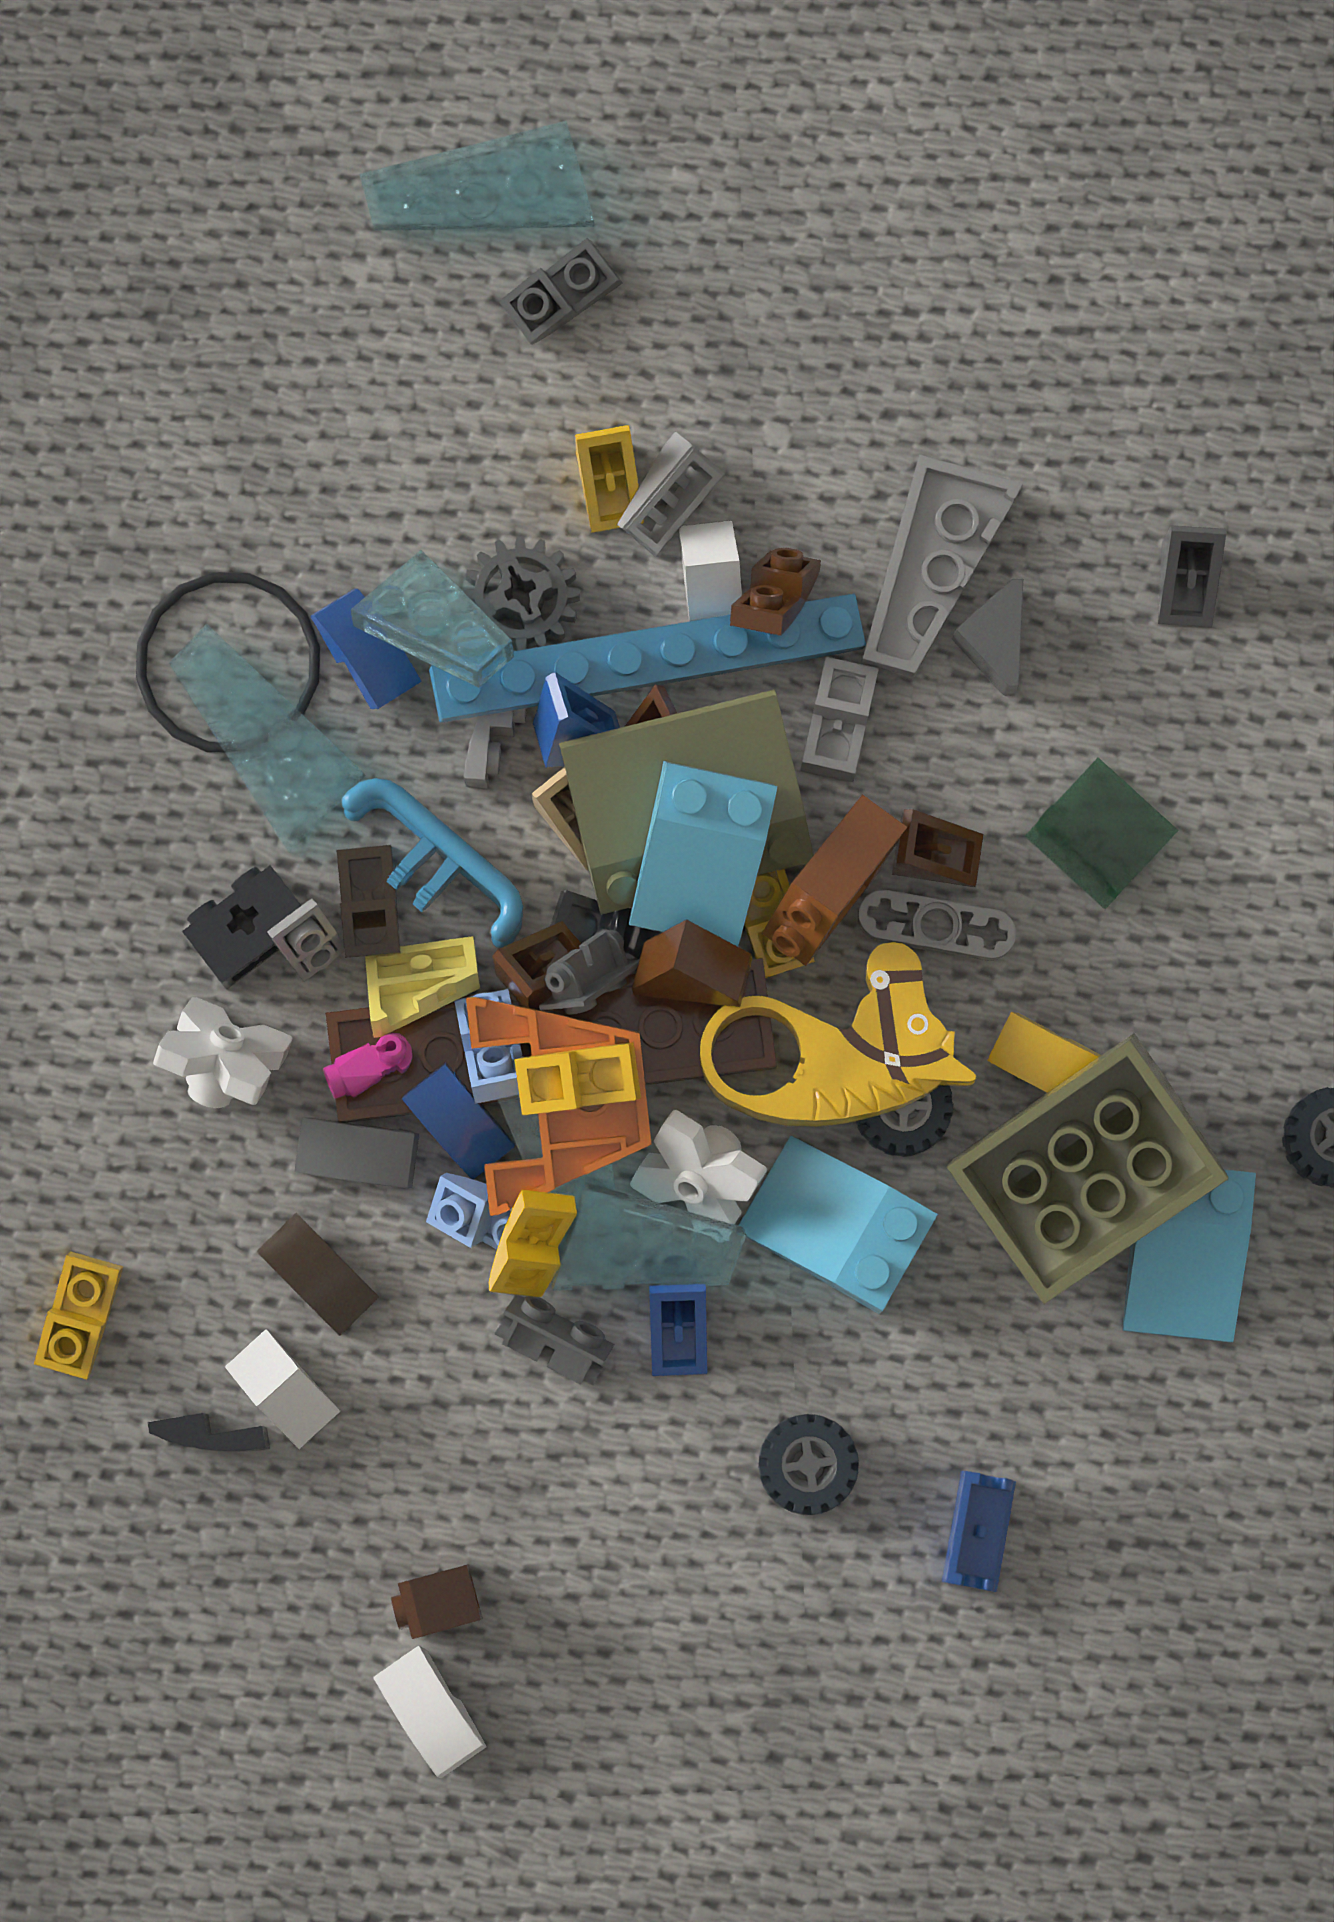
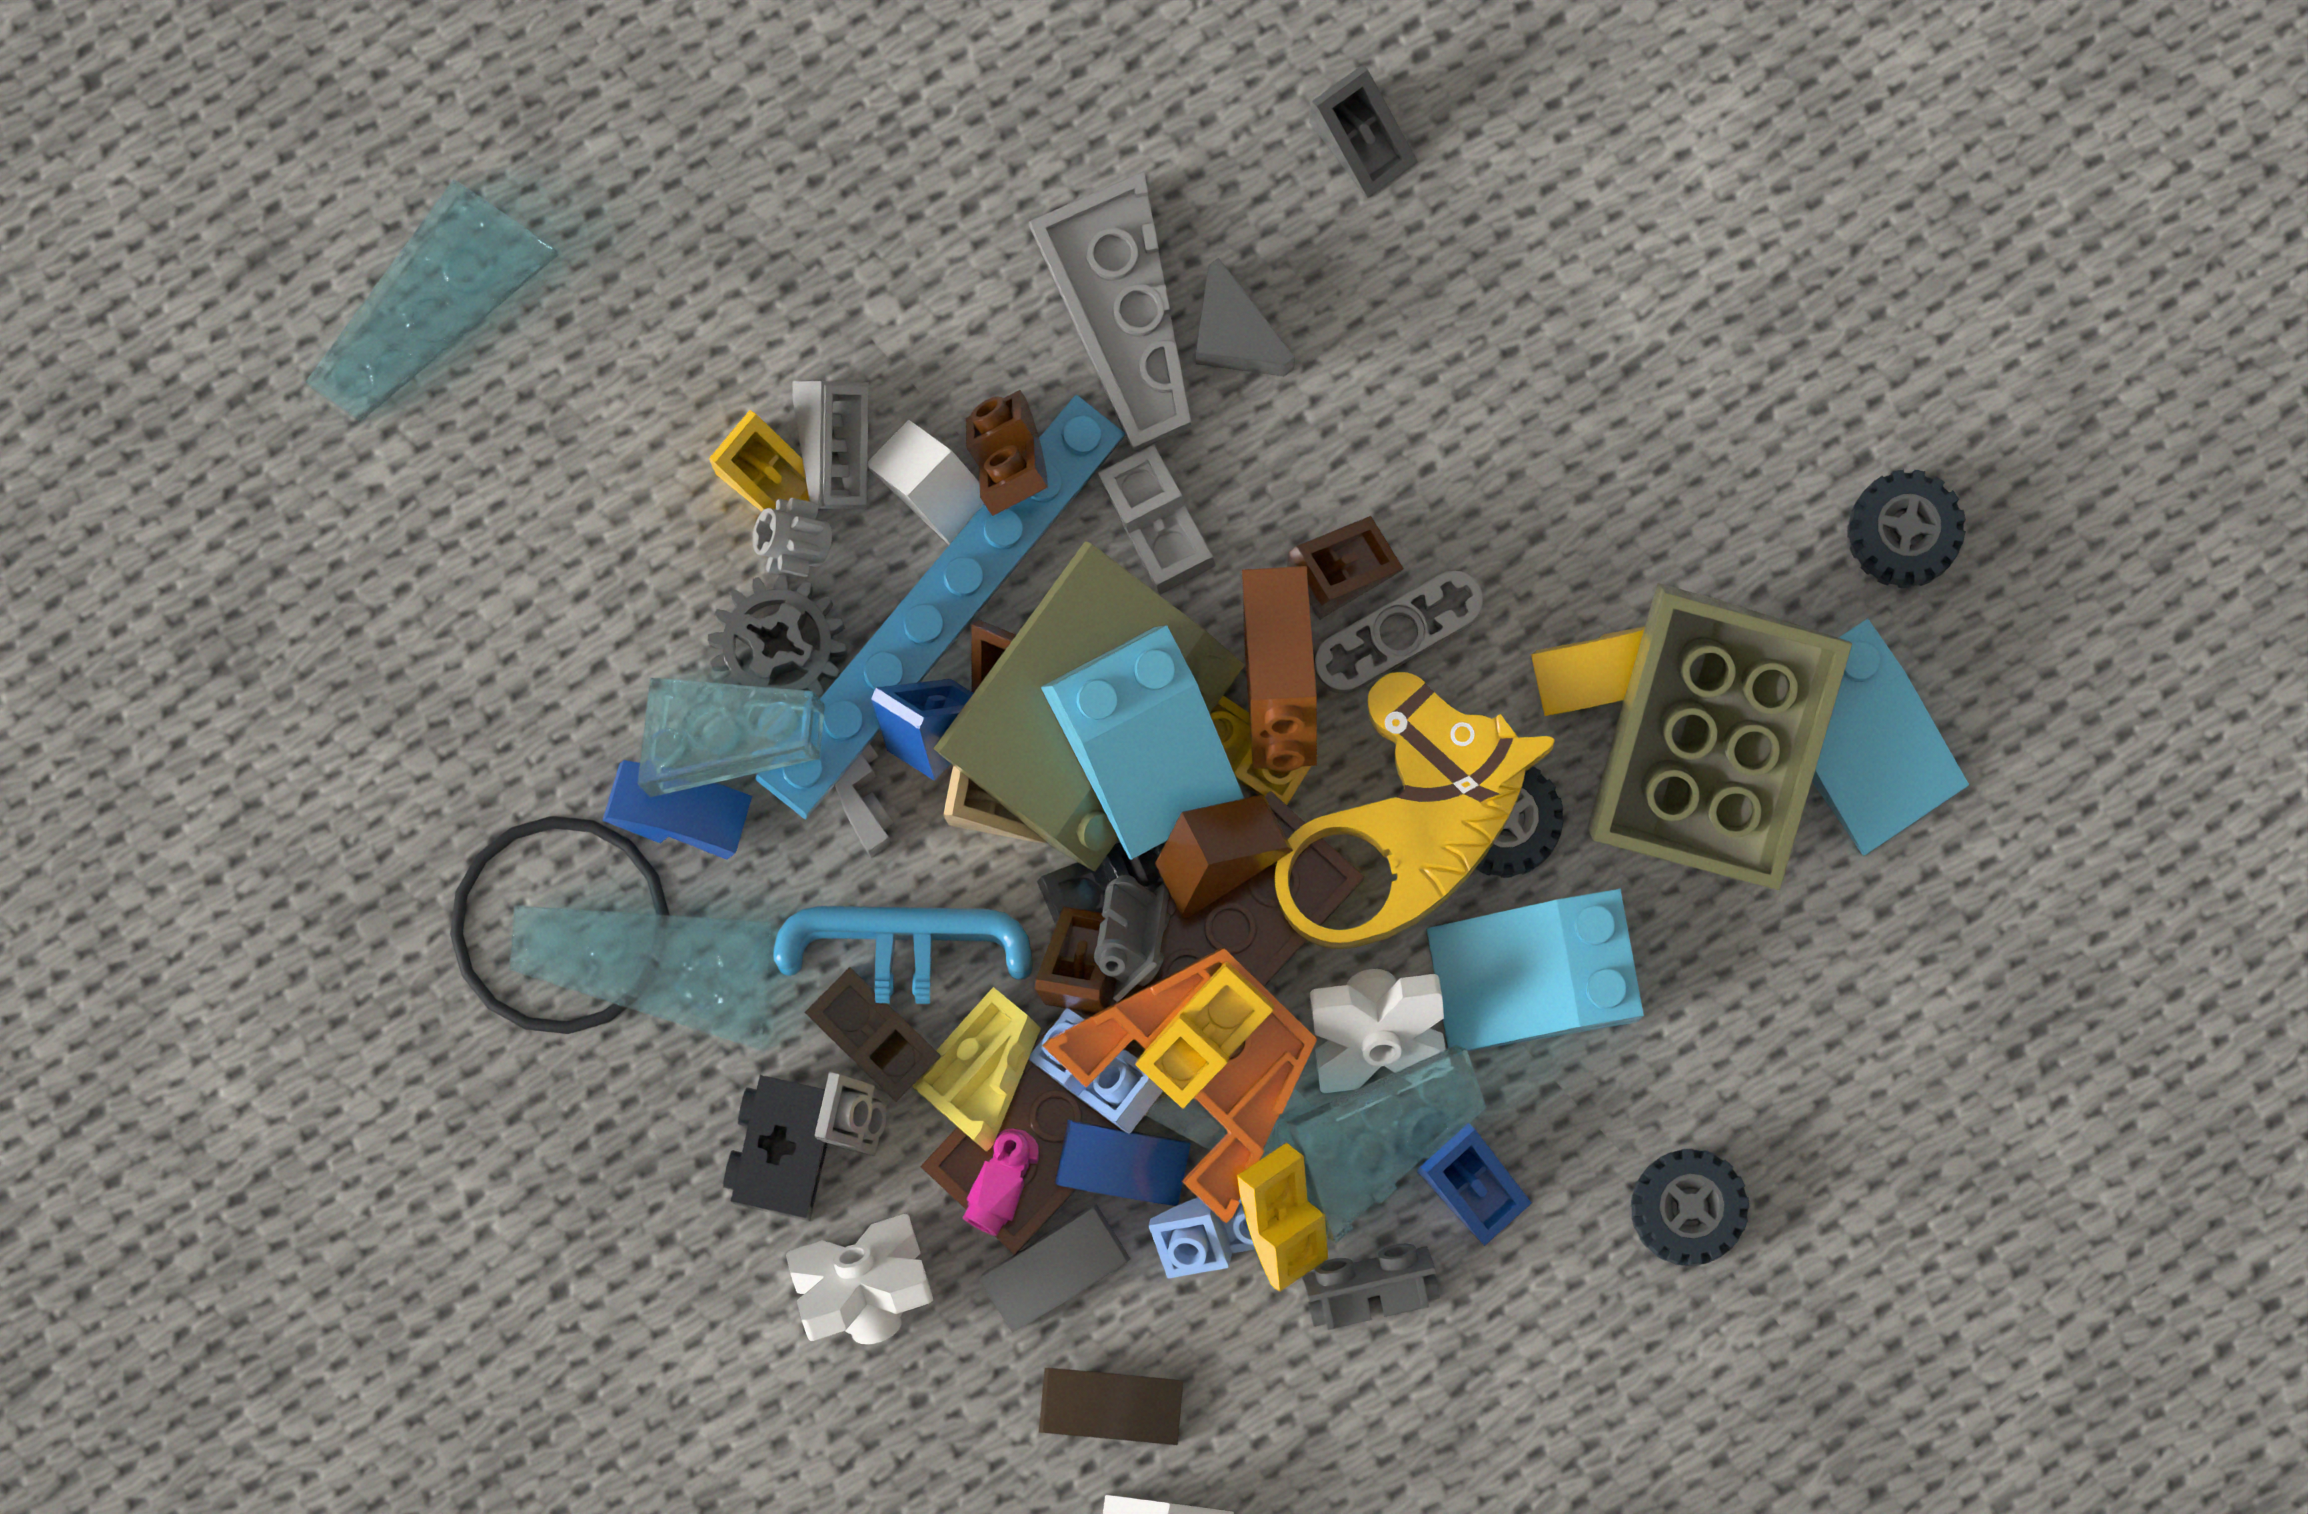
camera: 35 degrees left, 0 degrees up
(561, 292) = (578, 339): dark grey slope -> none
(588, 533) = (792, 537): none -> light grey gear
(978, 1531) = (1887, 1140): blue hinge -> none
(1101, 833) = (1475, 428): clear green hinge -> none

